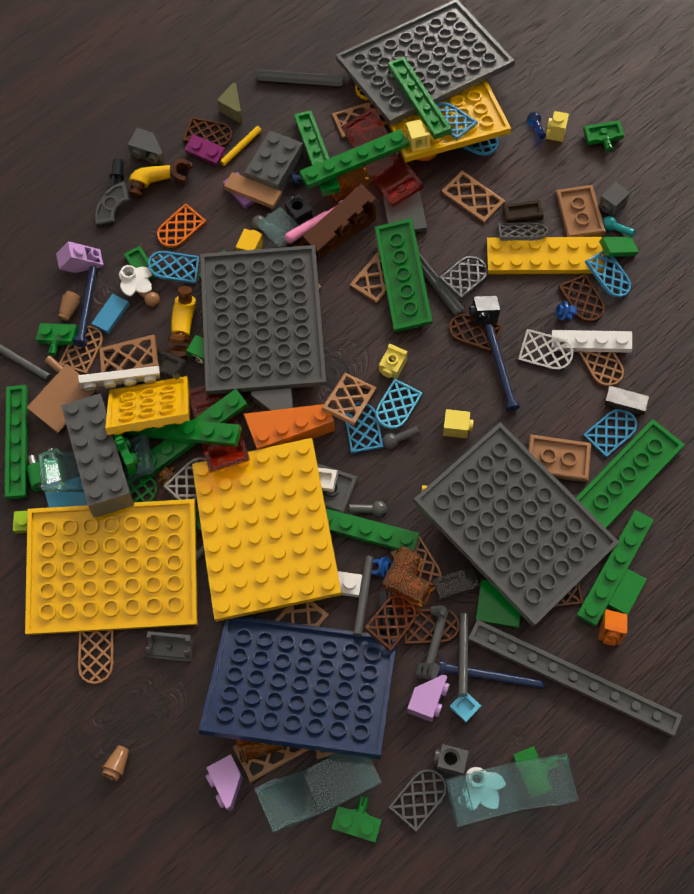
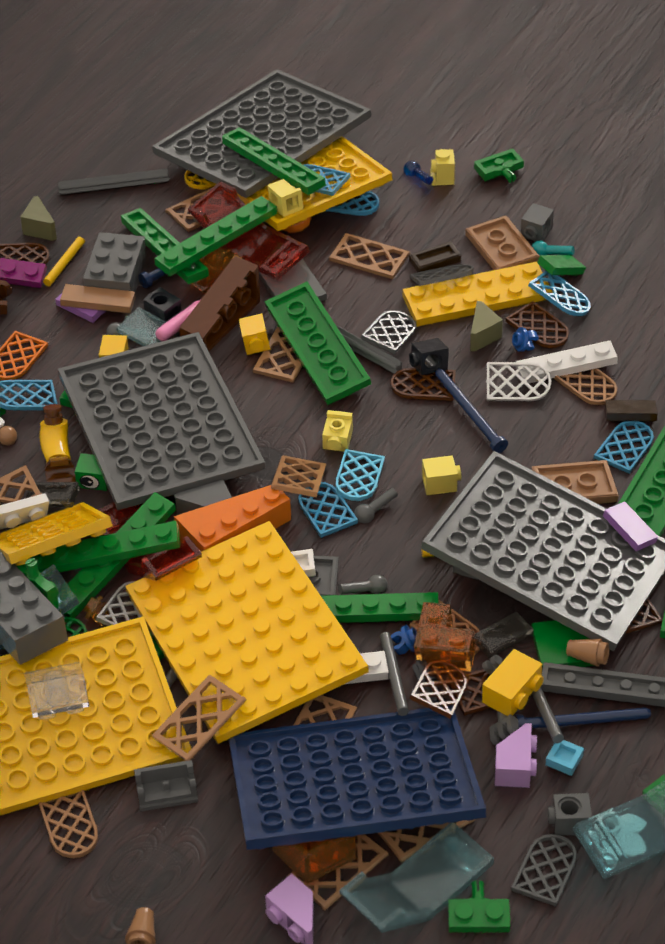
camera: 20 degrees left, 20 degrees down
(111, 548) = (57, 690): none -> clear slope
(190, 595) = (196, 698): none -> medium nougat window
(359, 254) = (254, 334): none -> yellow brick
(445, 637) = (512, 683): none -> yellow brick
(514, 621) = (589, 651): none -> medium nougat cone
(538, 291) = (485, 328): none -> olive slope
(584, 517) = (630, 526): none -> tile

